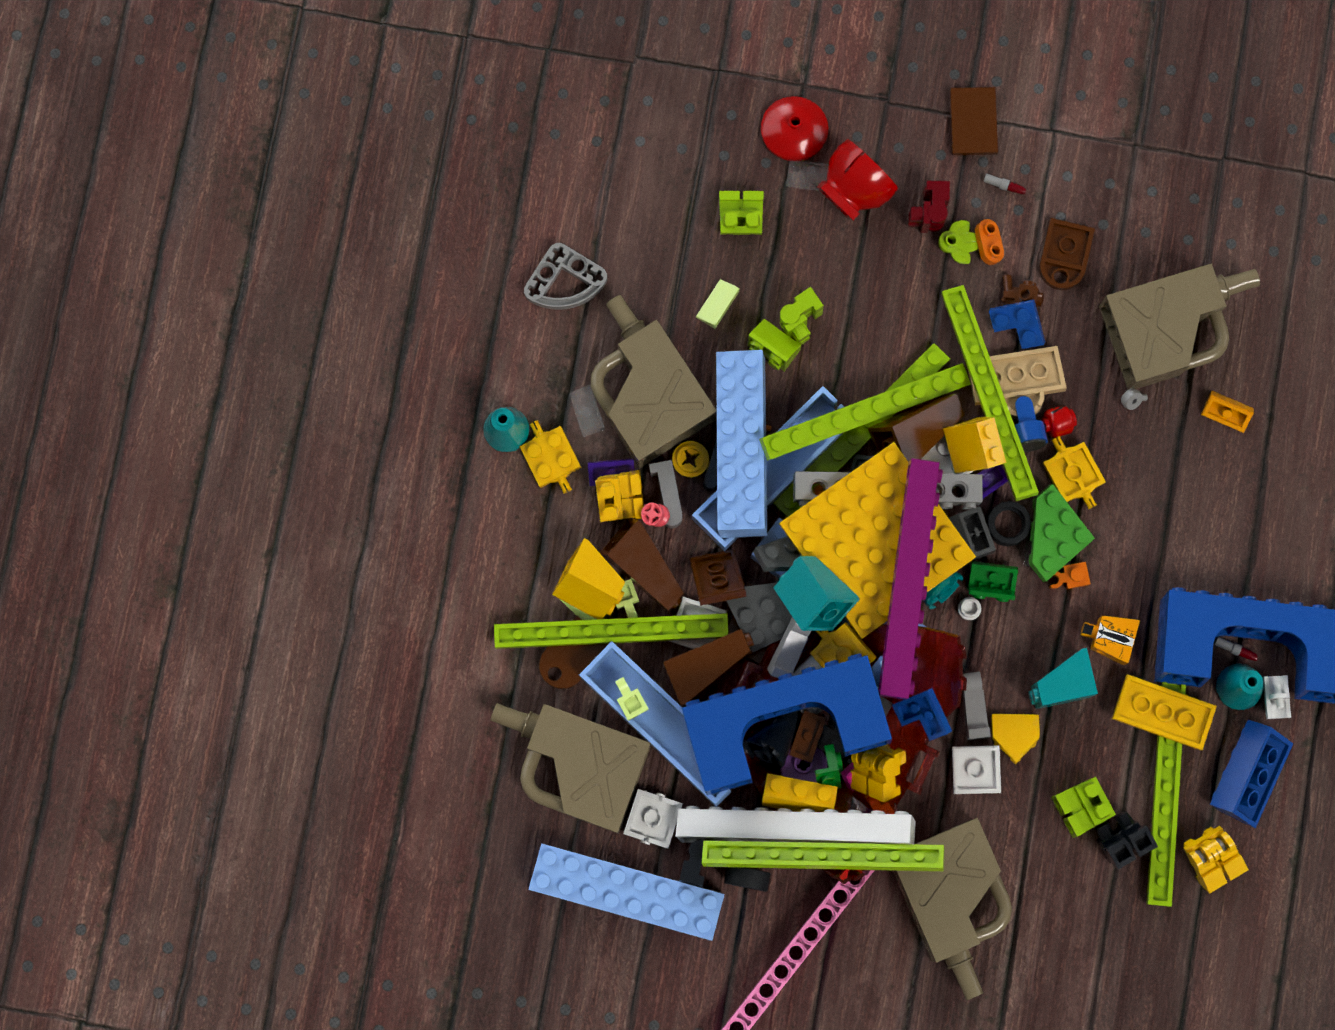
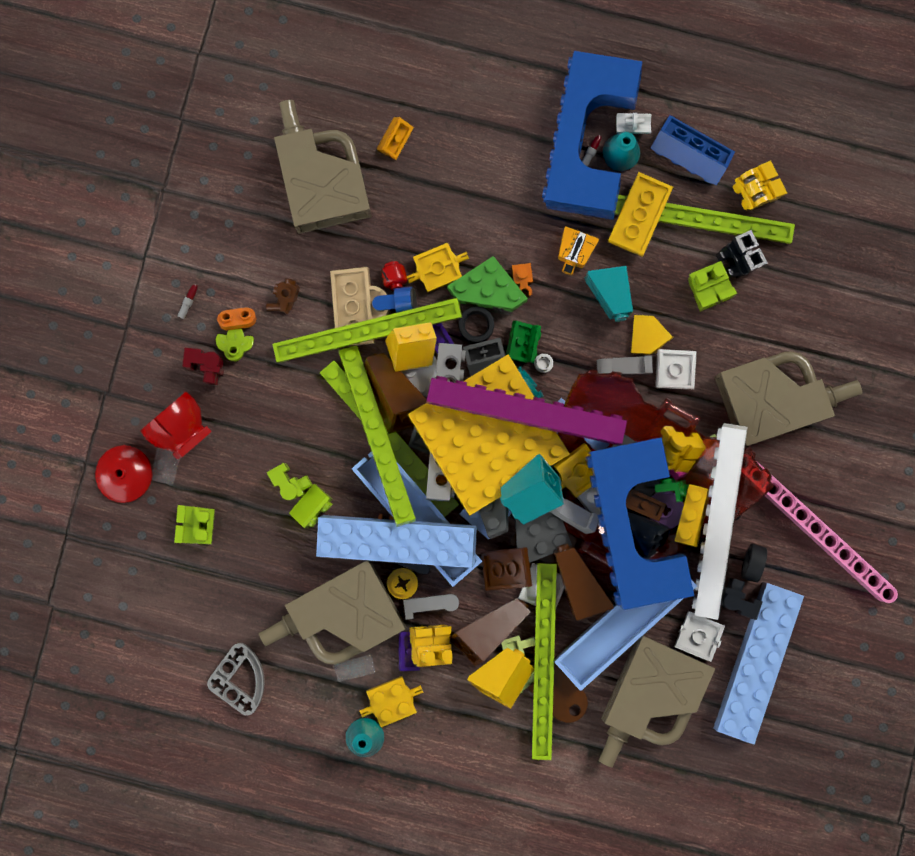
camera: 90 degrees left, 5 degrees up
(631, 701) = (608, 649): yellowish green plate -> none
(649, 514) = (453, 620): coral wheel -> none
(718, 303) = (270, 550): yellowish green slope -> none
(823, 855) = (749, 501): lime plate -> none
(925, 708) = (631, 406): blue plate -> none
(973, 121) = (130, 322): reddish brown tile -> none
(1022, 317) = (303, 298): blue plate -> none
(1065, 251) = (250, 256): reddish brown tile -> none
(1132, 398) = (379, 213): light grey piece -> none

